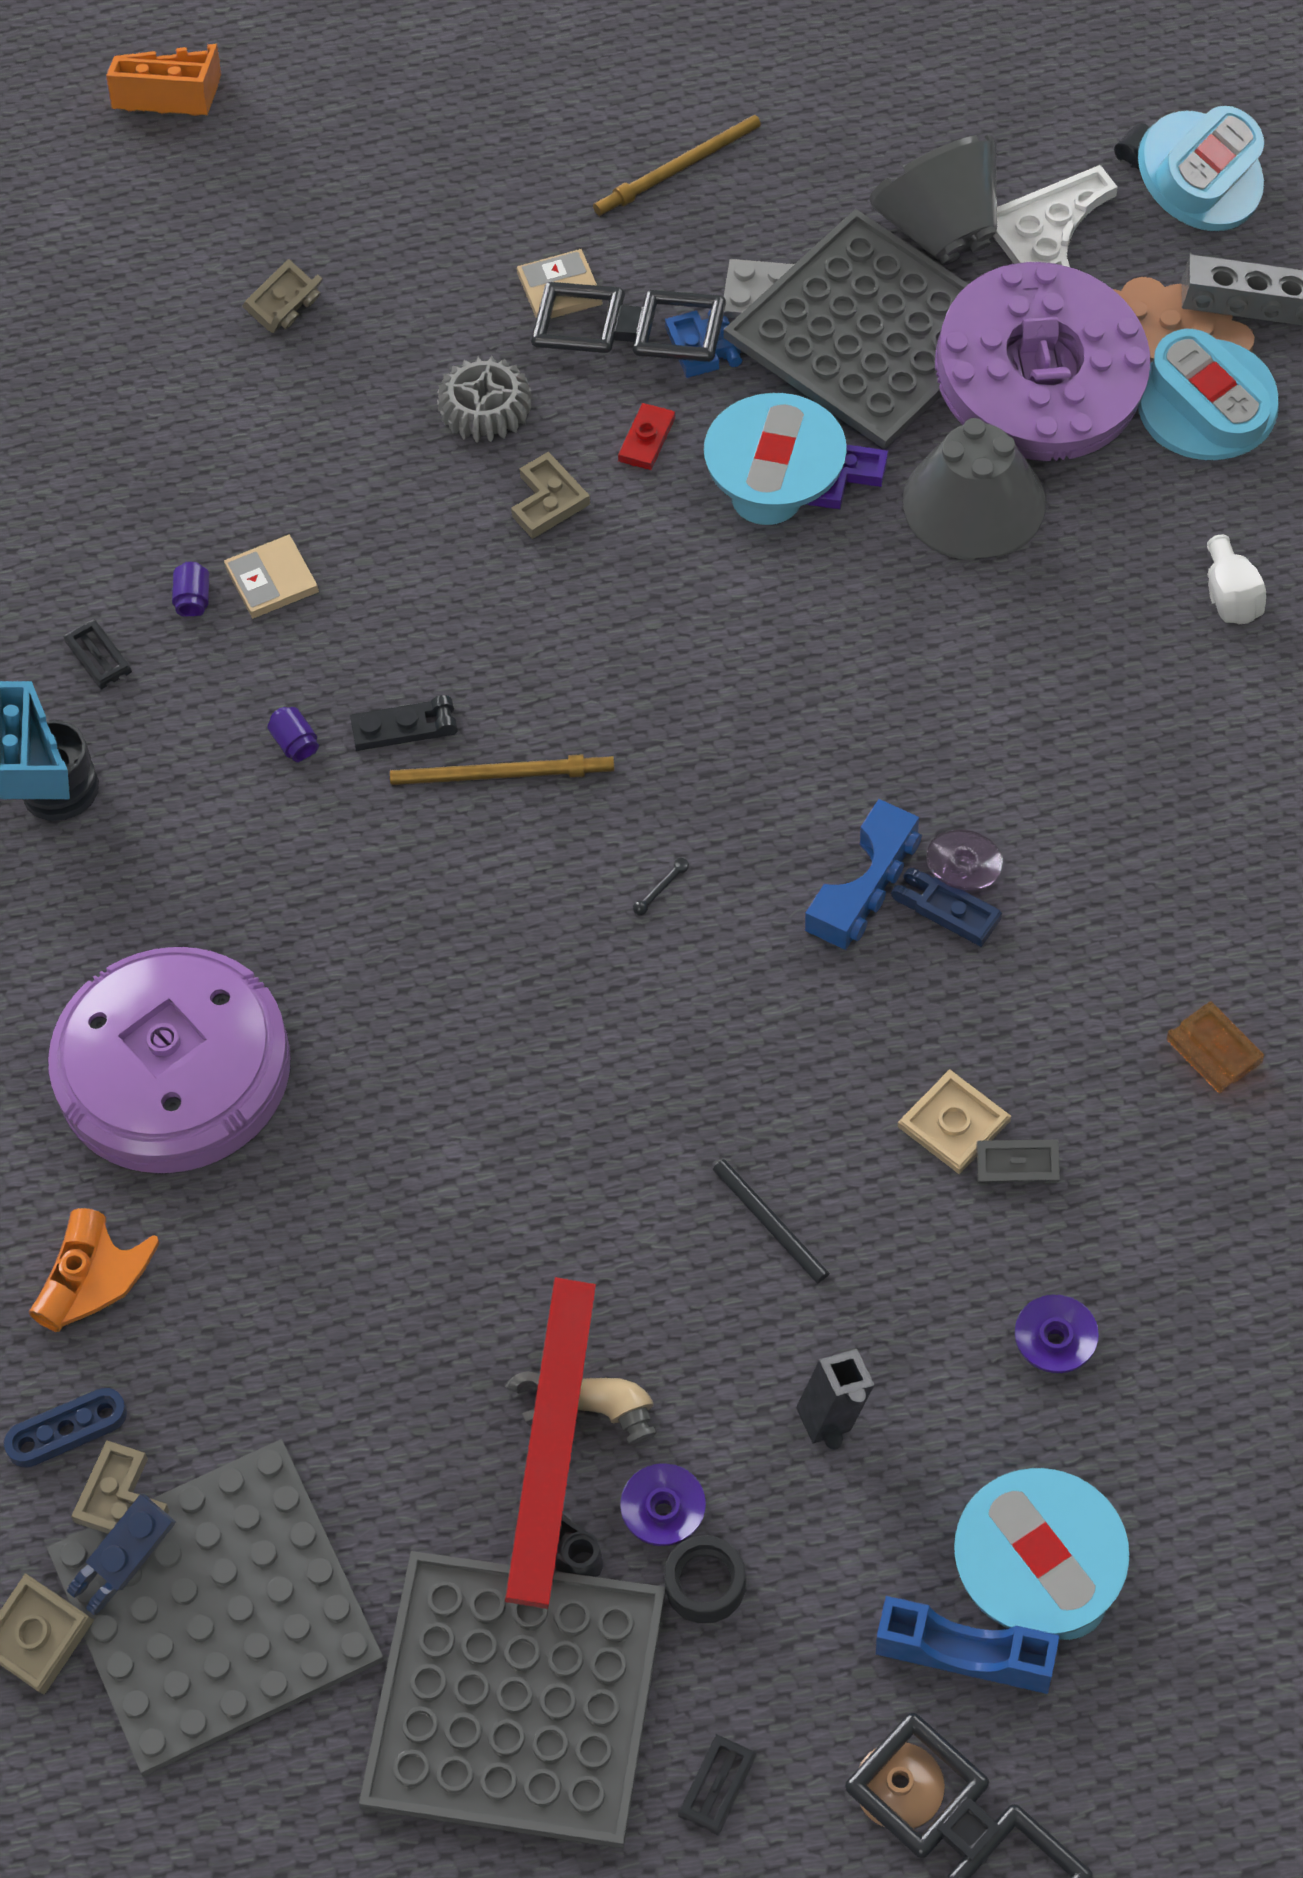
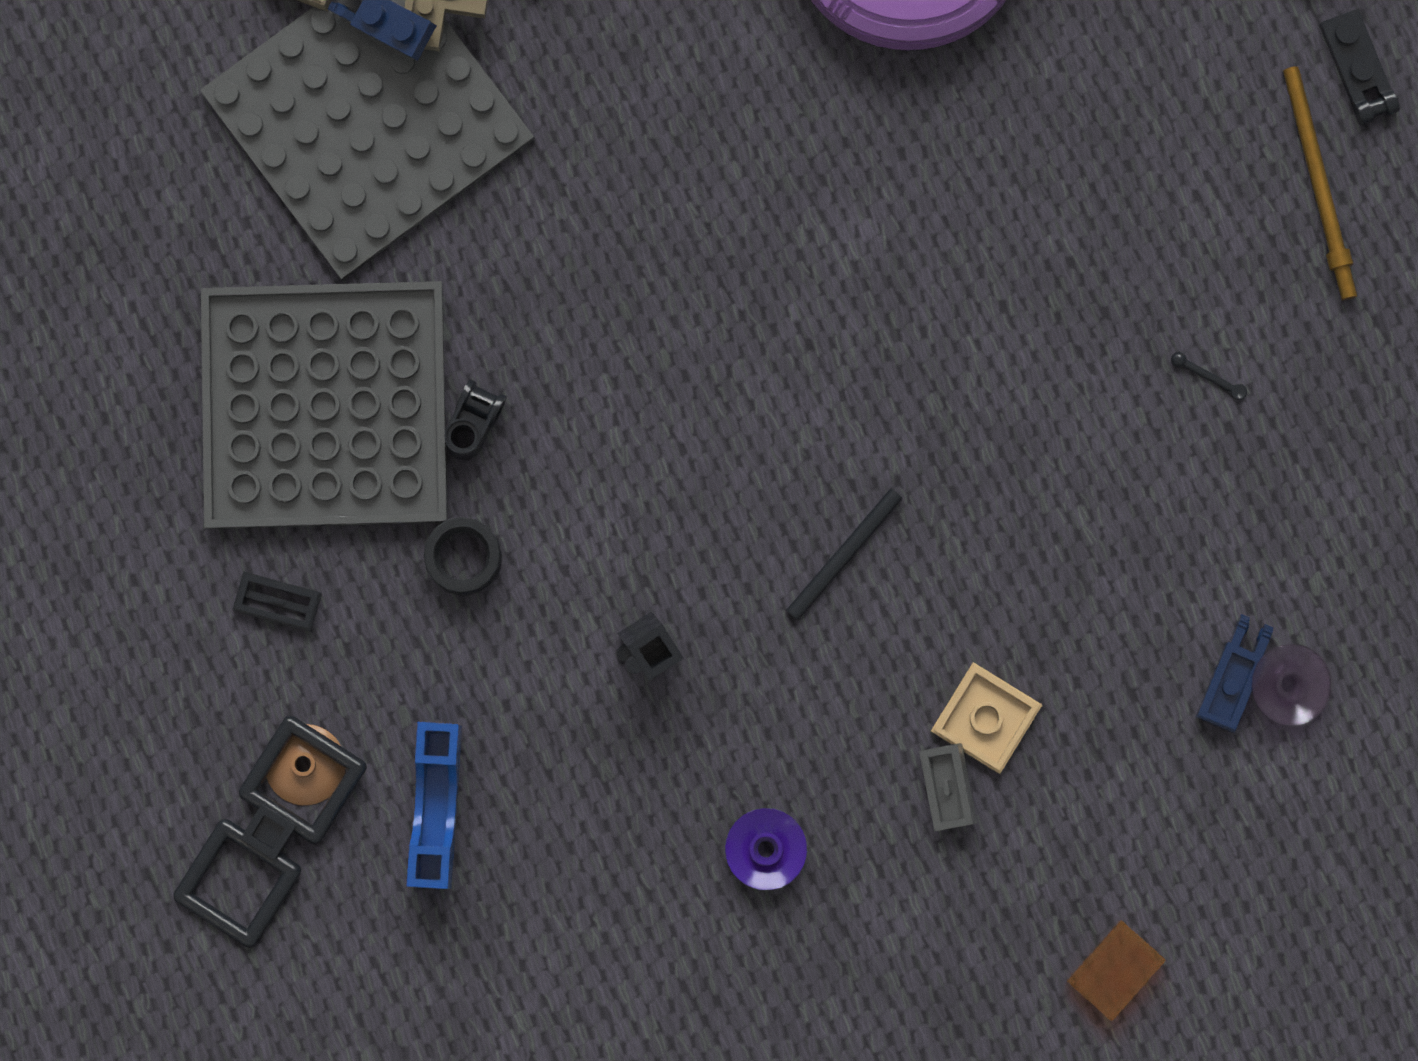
camera: 80 degrees right, 25 degrees up
(550, 1444) = (560, 387): red tile -> none
(614, 1397) = (626, 438): piece -> none
(661, 1485) = (521, 483): dark purple dish -> none
(841, 909) = (1205, 566): blue arch -> none
(1042, 1552) = (532, 862): medium azure piece -> none

